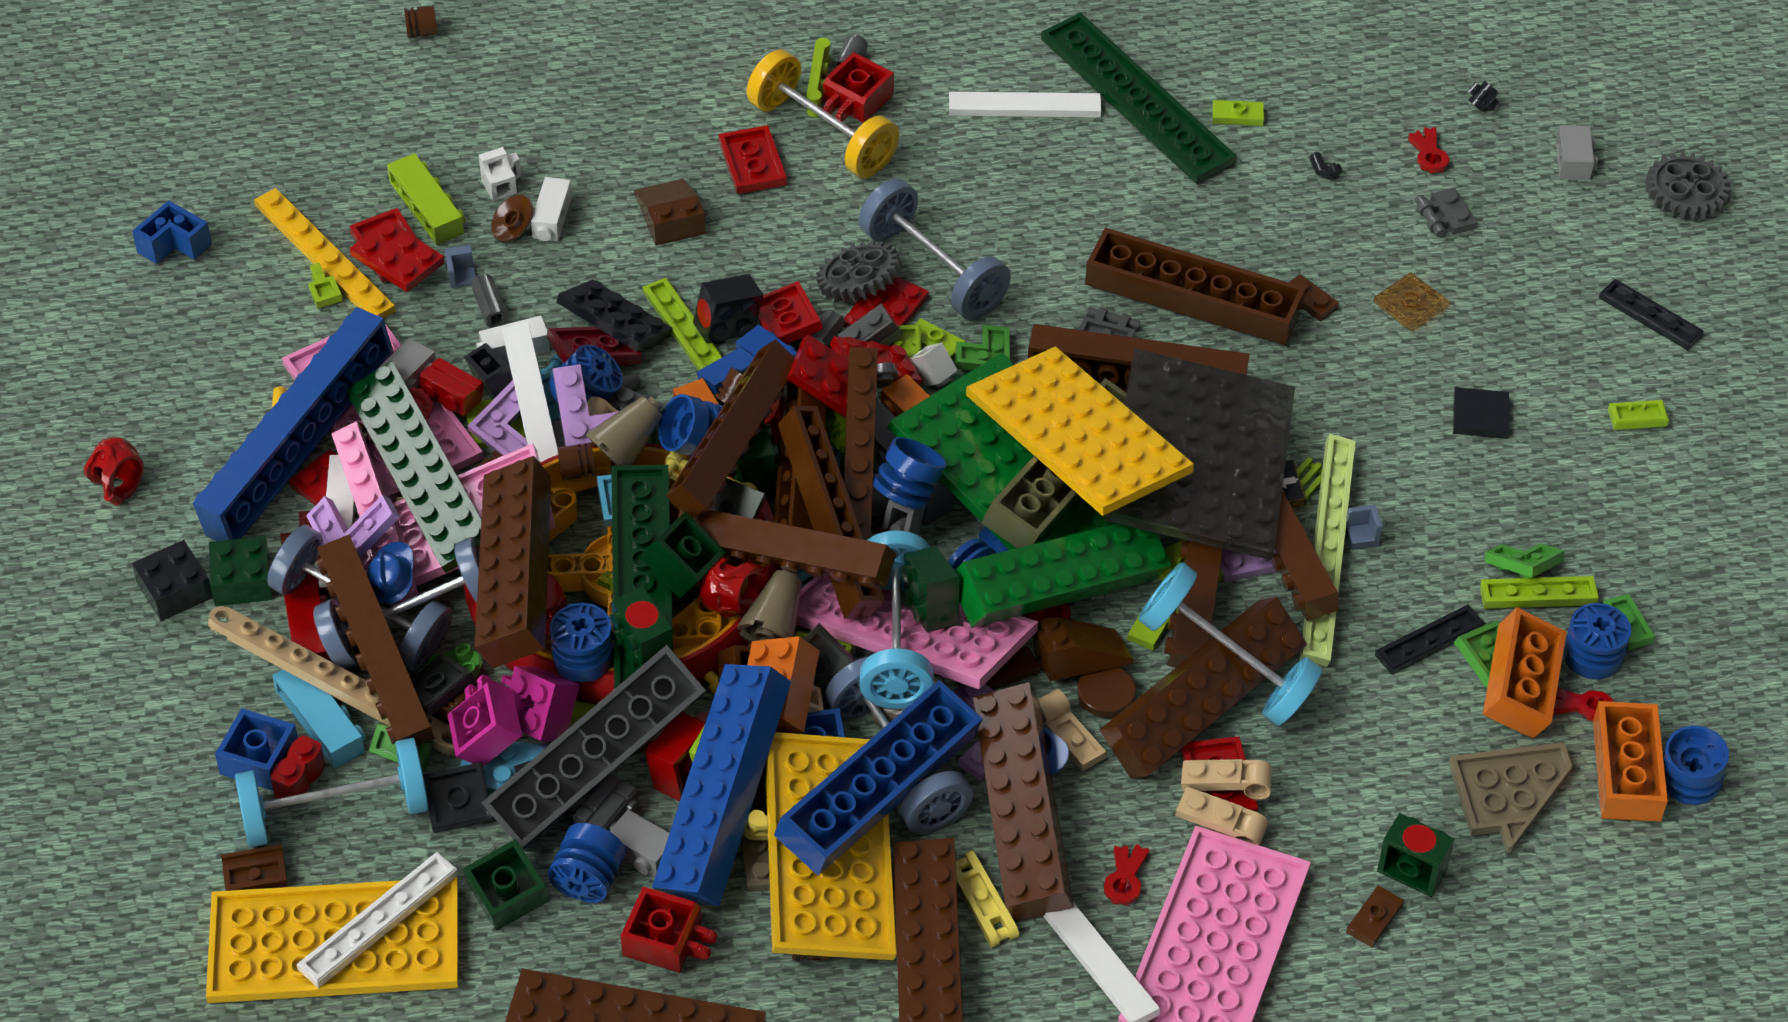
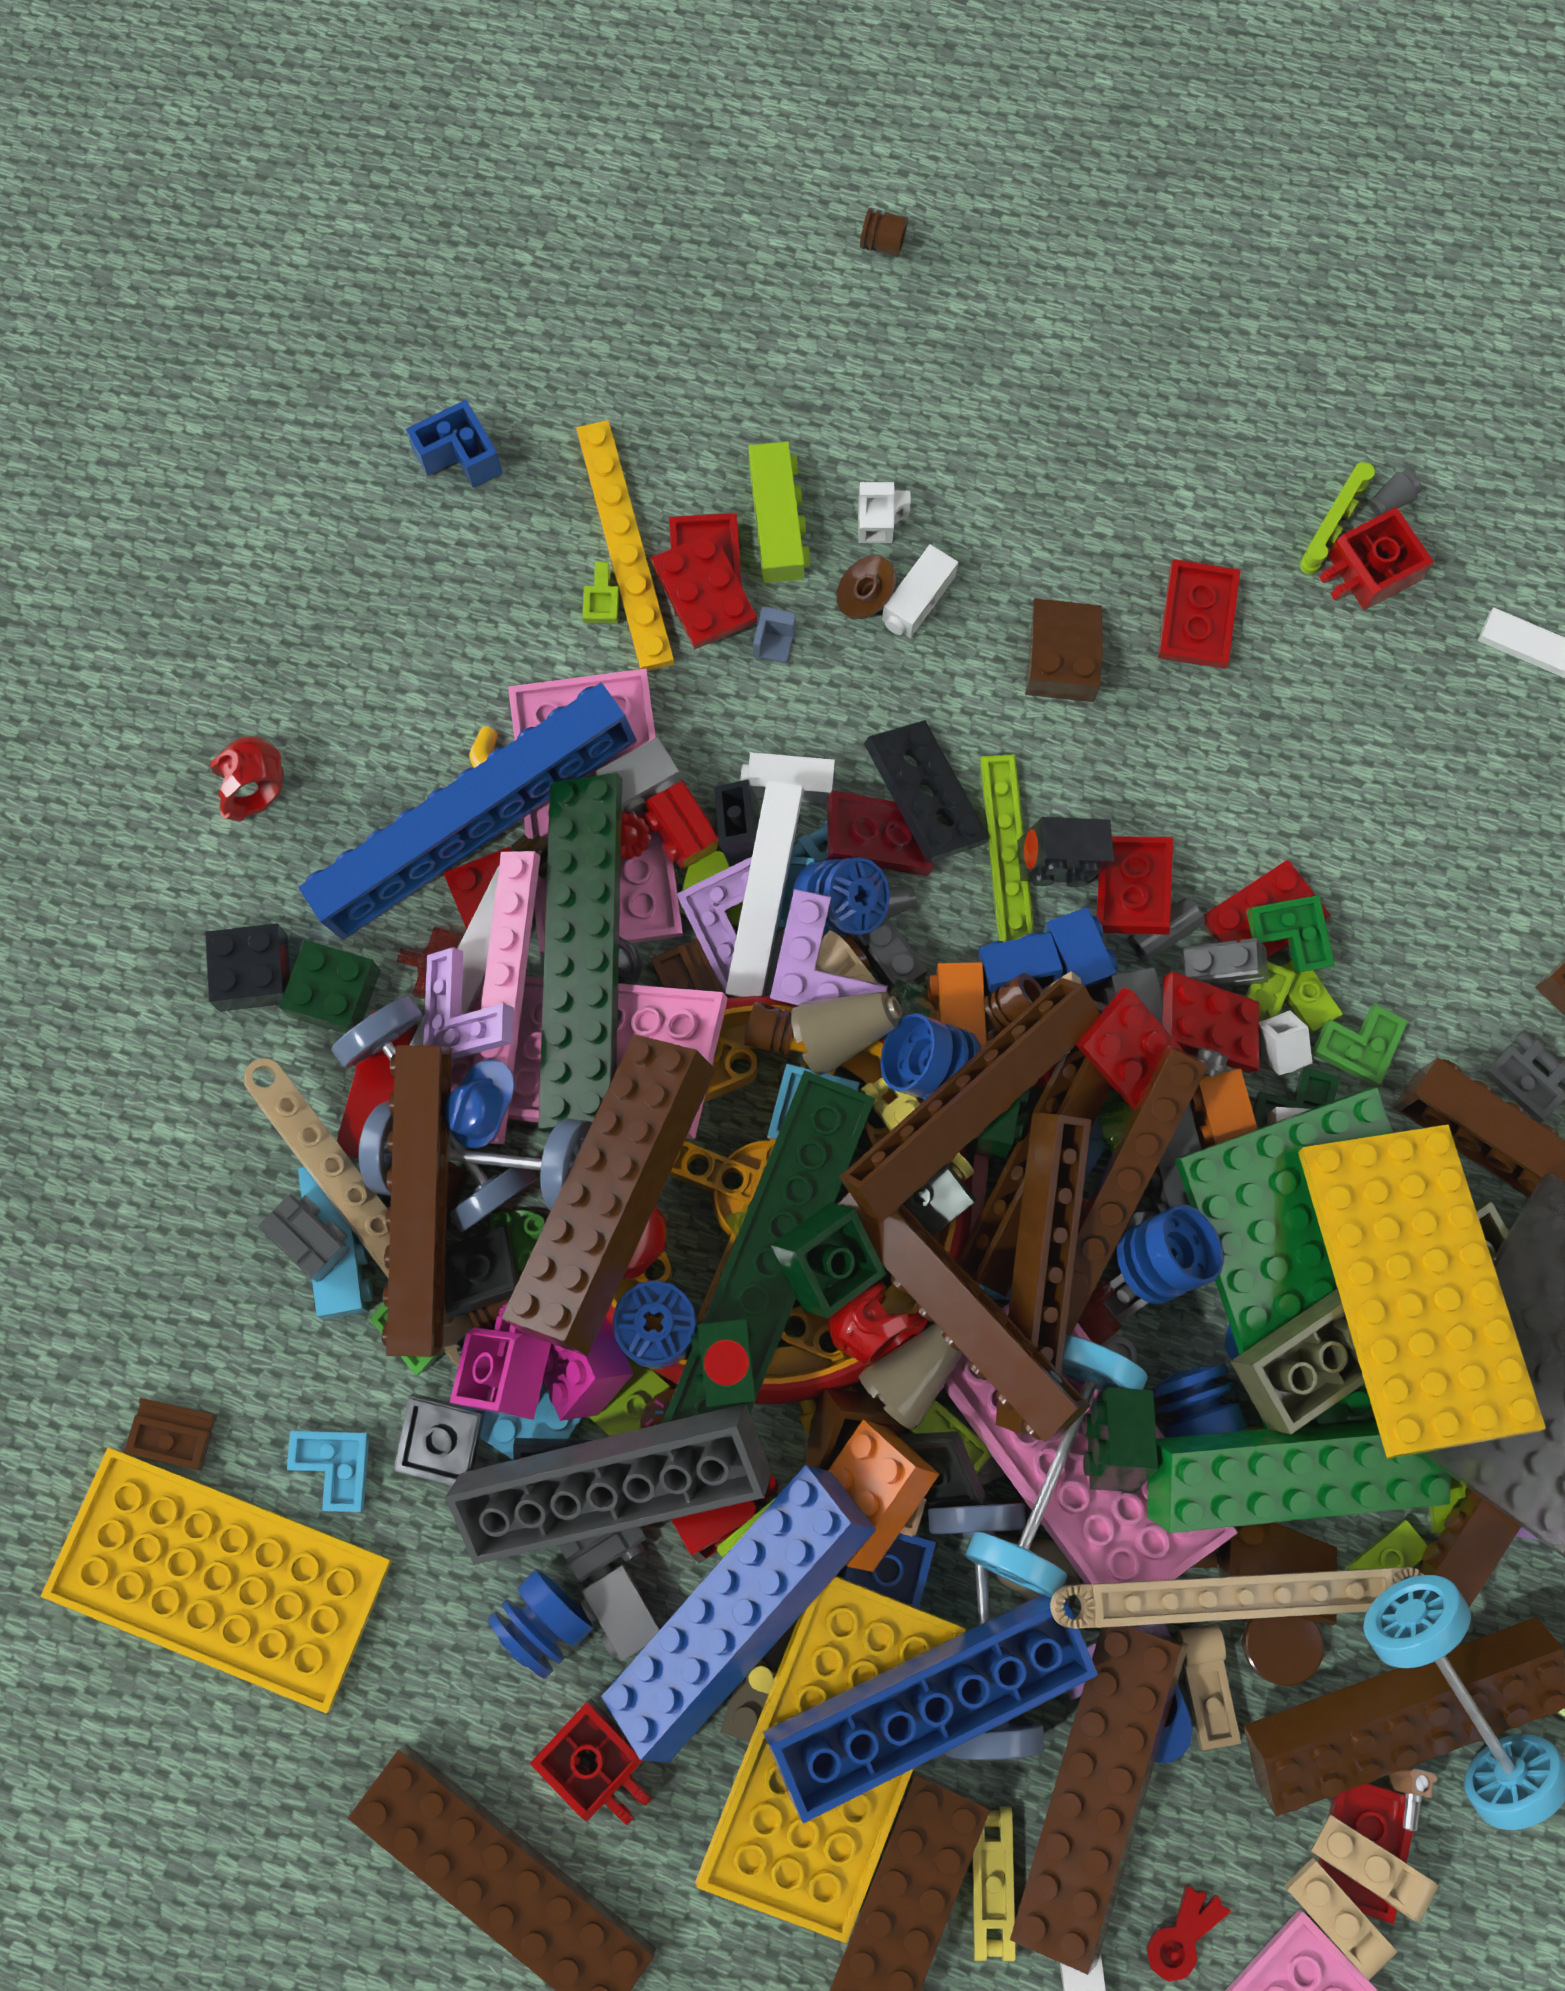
camera: 25 degrees right, 25 degrees up
(256, 745) = (239, 1267): blue brick -> none
(299, 769) = (267, 1323): red brick -> none
(300, 702) = (305, 1237): none -> dark grey brick
(377, 920) = (271, 1584): white tile -> none
(387, 836) = (343, 1460): none -> medium azure plate
(409, 777) = (193, 1357): medium azure axle -> none
(489, 300) = (787, 701): dark grey axle -> none
(506, 884) = (436, 1605): dark green brick -> none
(775, 82) = (1277, 511): yellow axle -> none
(858, 271) = (1253, 847): dark grey gear -> none
(908, 295) = (1300, 923): none -> green plate
(977, 288) = (1335, 779): sand blue axle -> none
(1042, 646) = (1225, 1597): none -> tan plate
(1230, 726) = (1415, 1785): none -> piece

